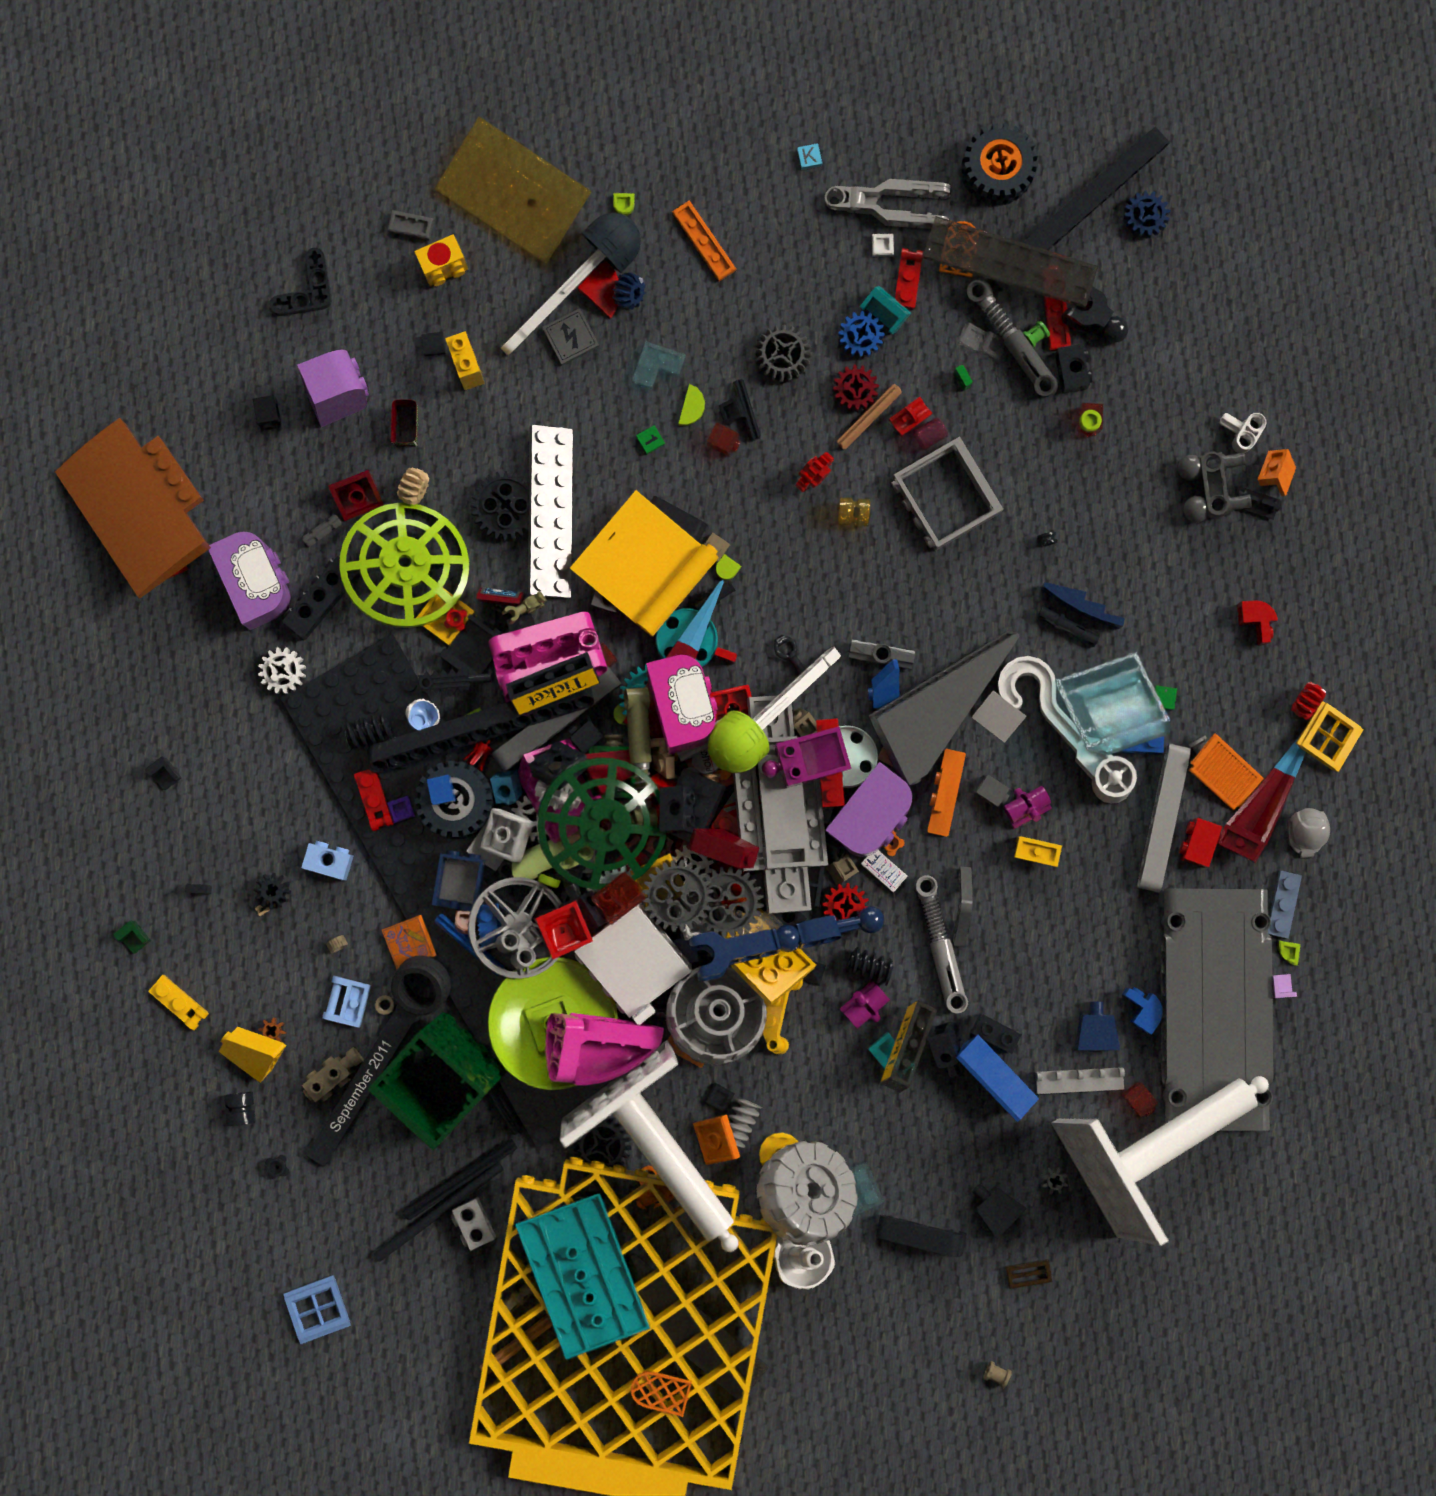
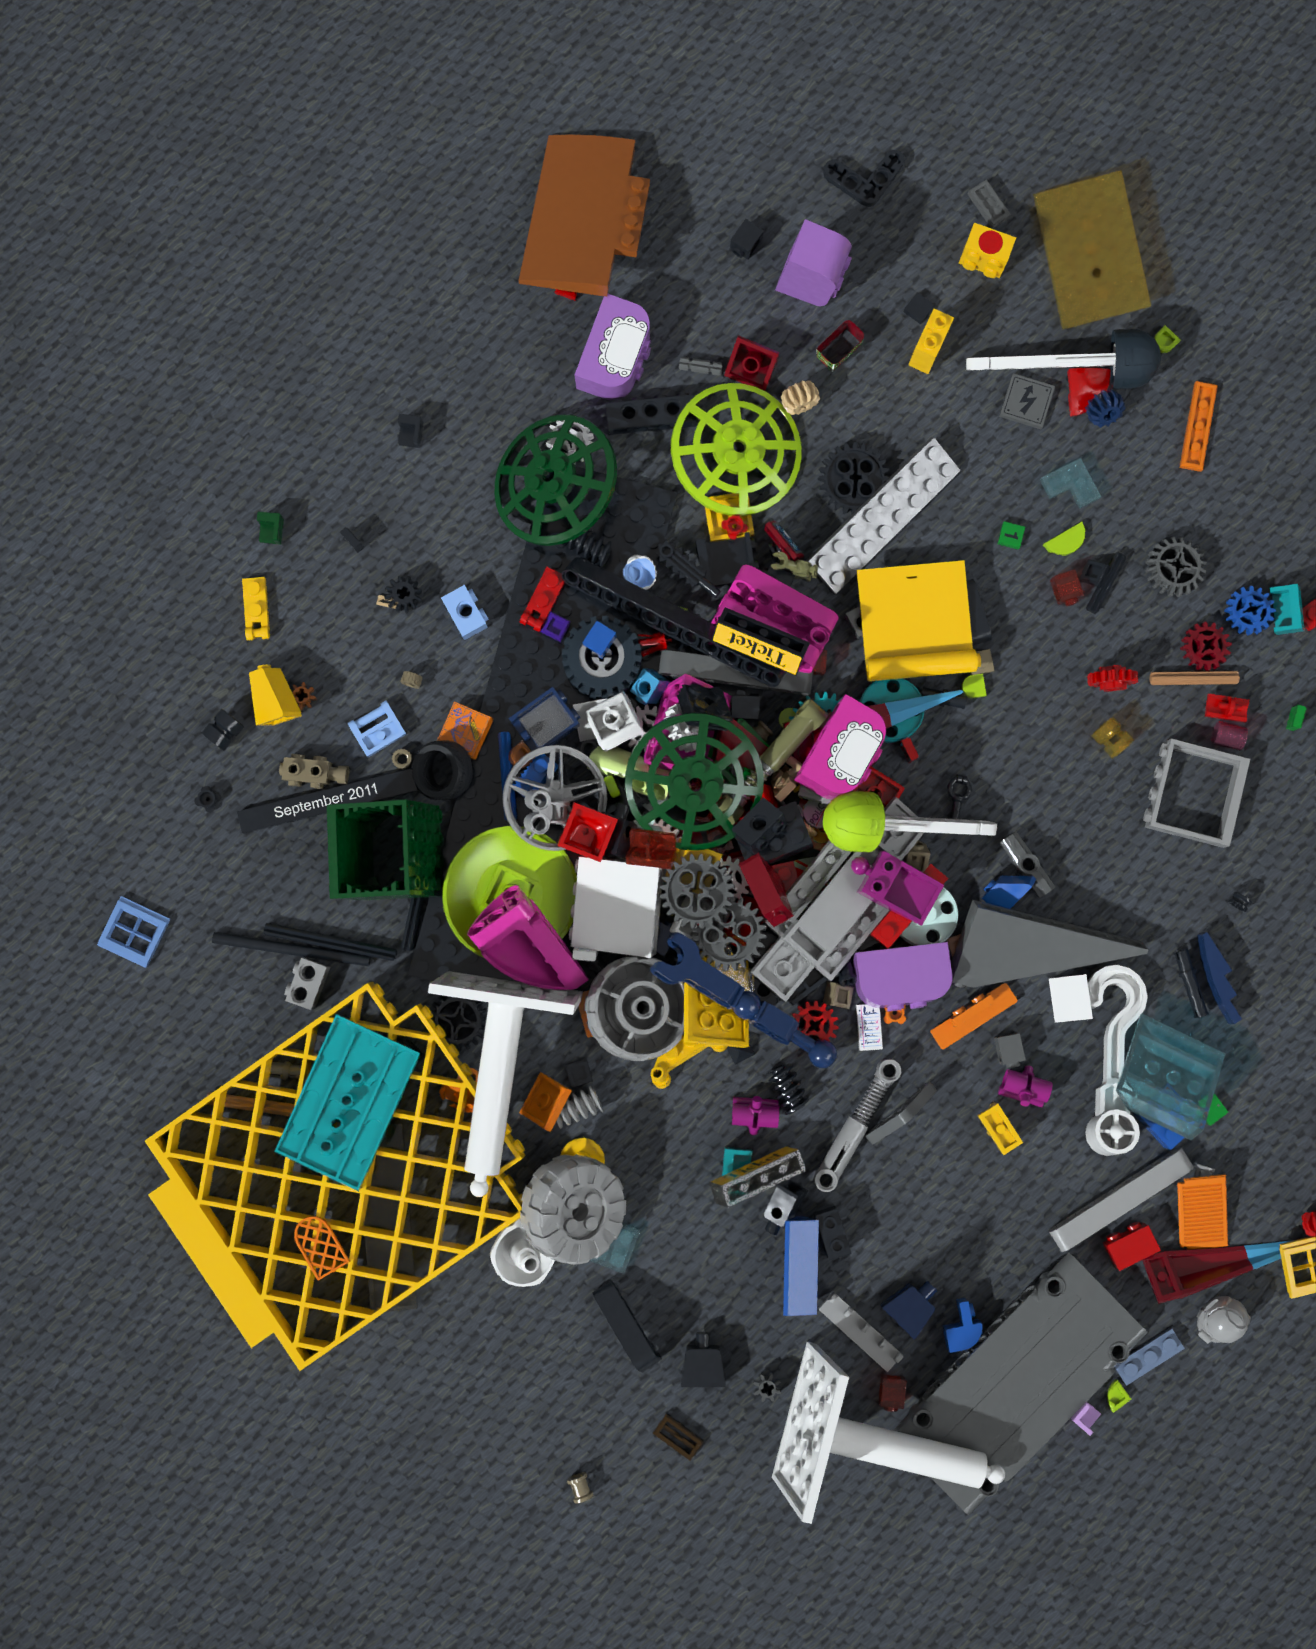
camera: 50 degrees right, 0 degrees up
(307, 706) = (562, 483): none -> dark green dish

